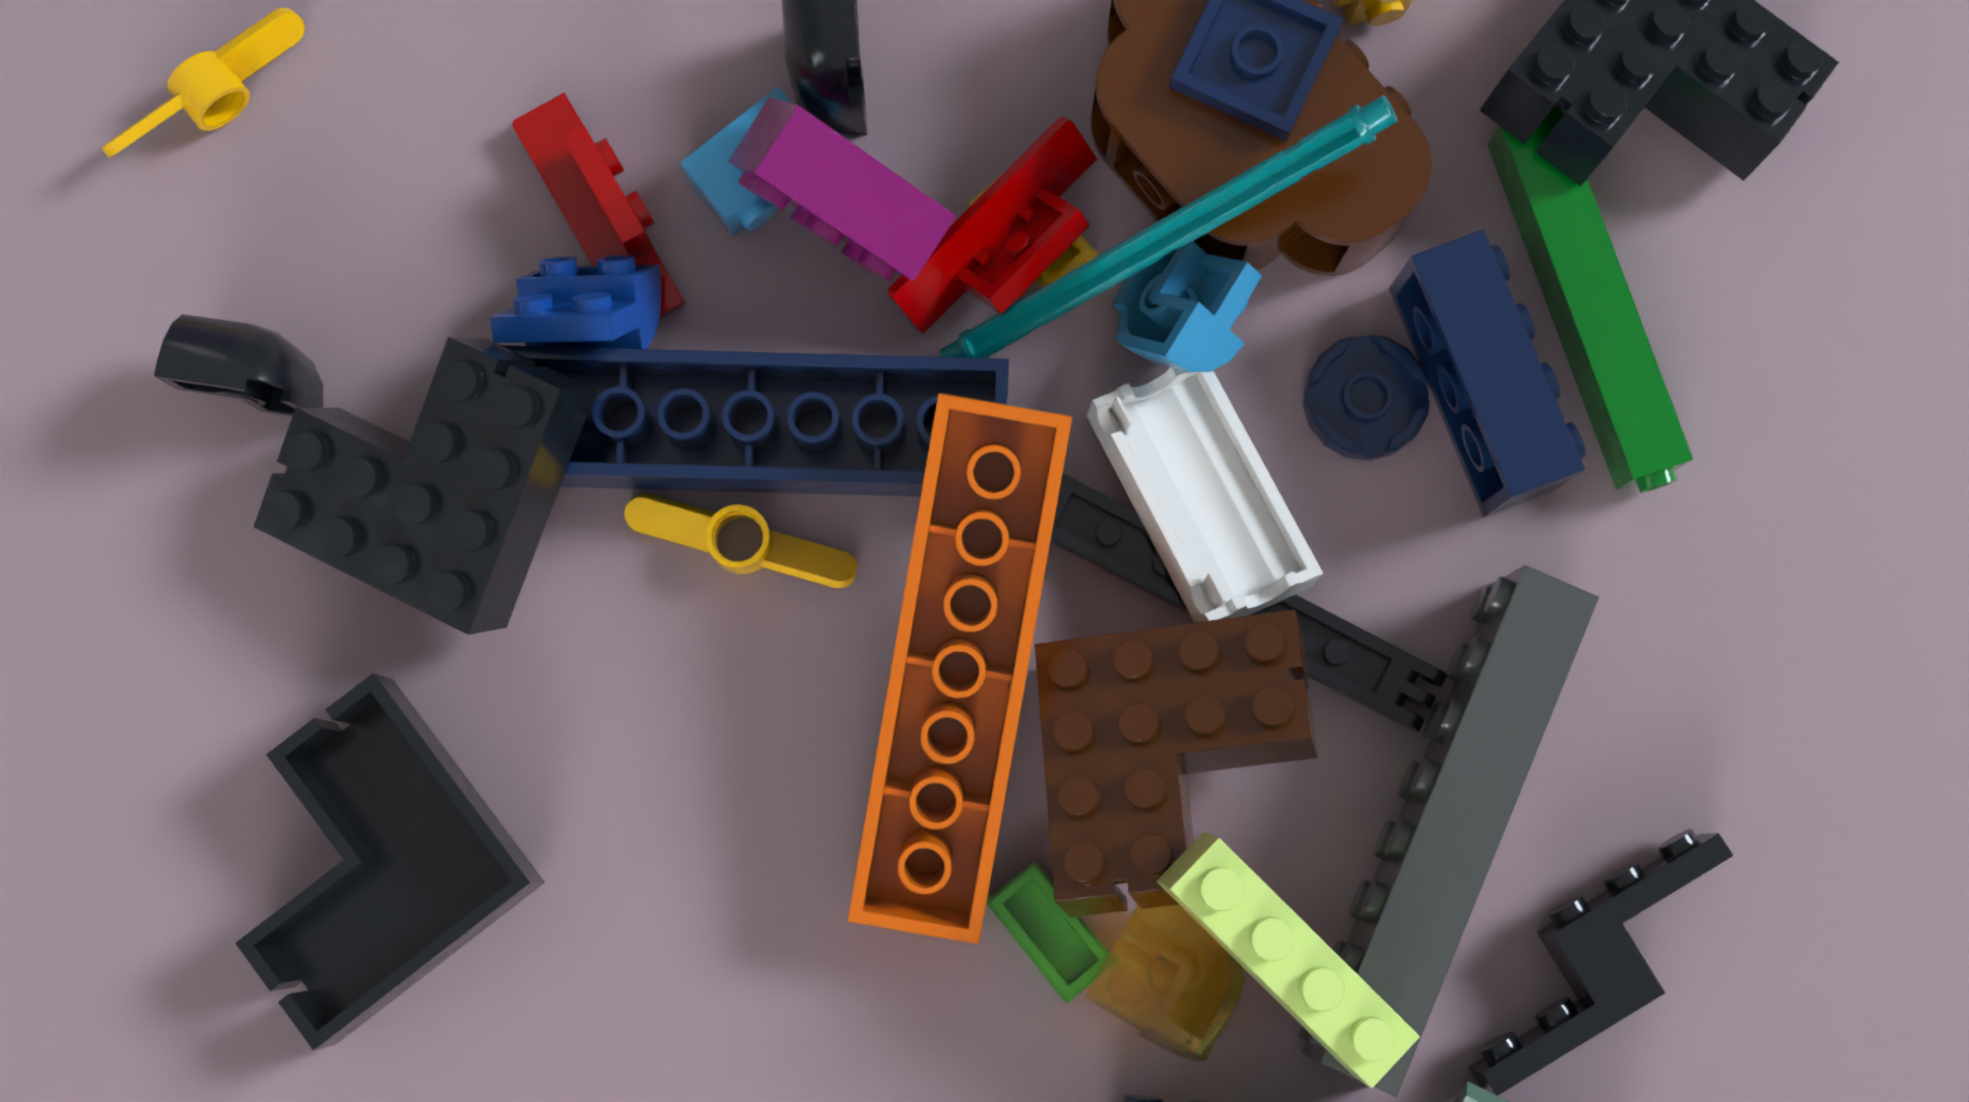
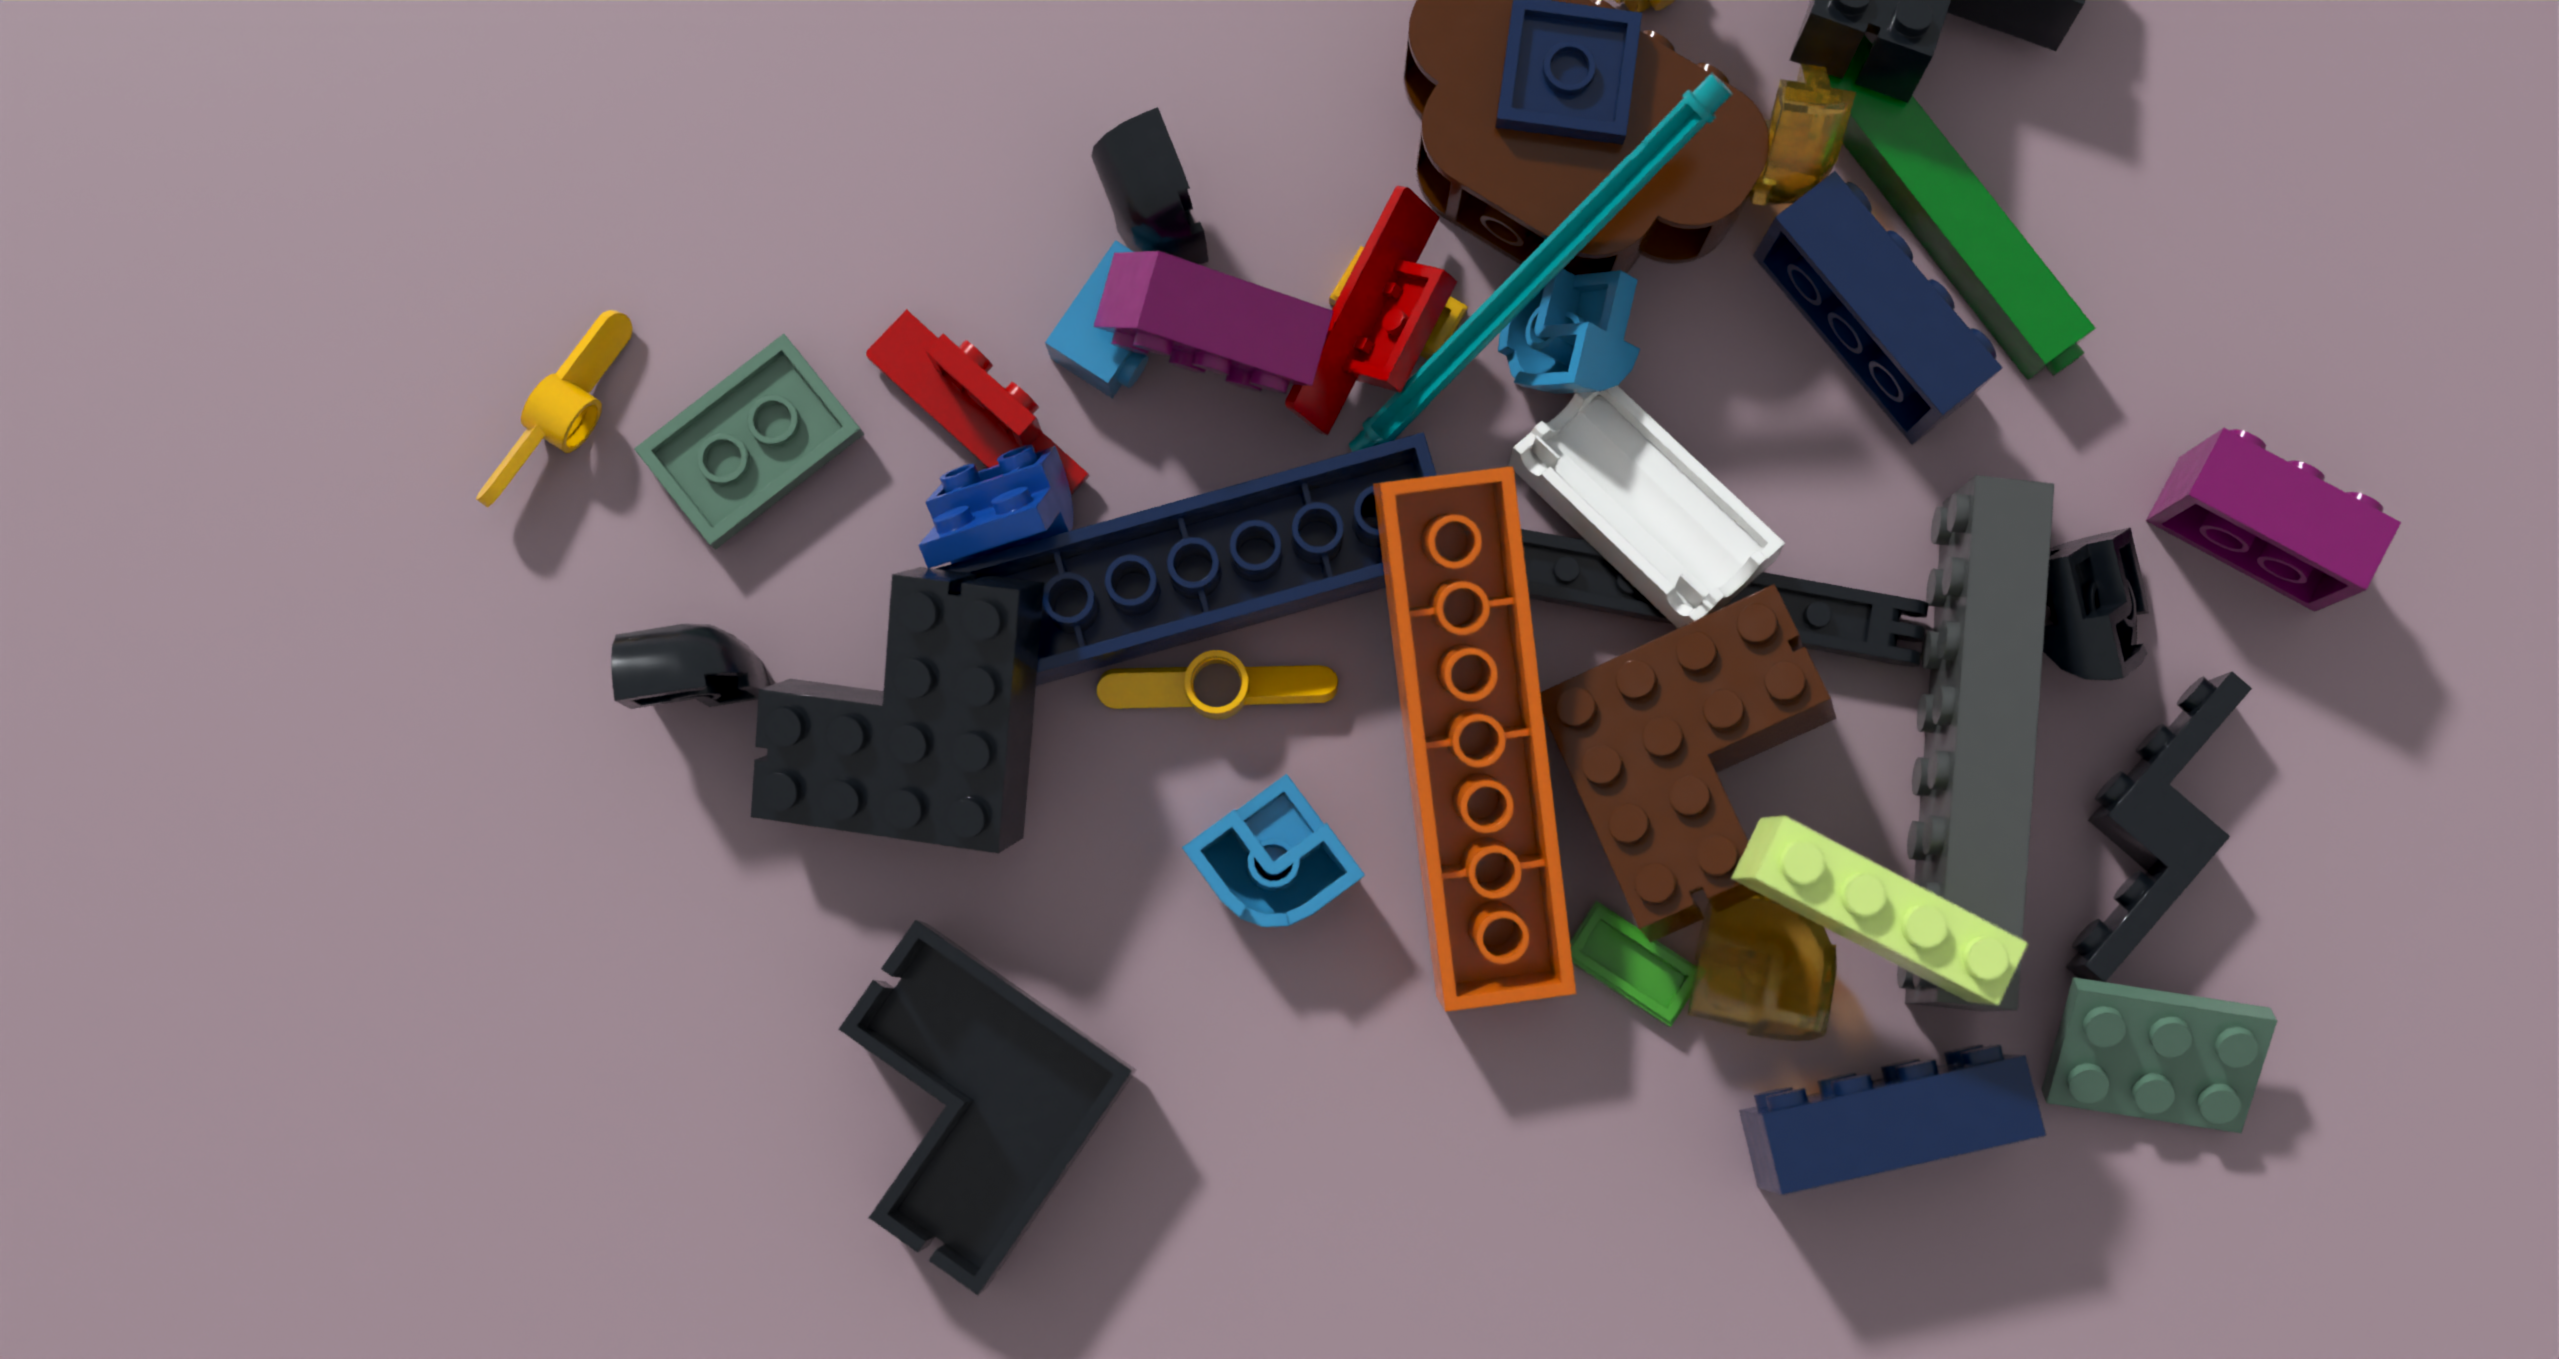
camera: 15 degrees left, 0 degrees up
(375, 172) = (749, 441): none -> sand green plate
(734, 722) = (1274, 858): none -> dark azure brick
(1358, 415) = (1755, 384): dark blue tile -> none
(1465, 186) = (1803, 136): none -> clear yellow brick
(1608, 723) = (2094, 606): none -> black brick
(1808, 699) = (2274, 519): none -> magenta brick

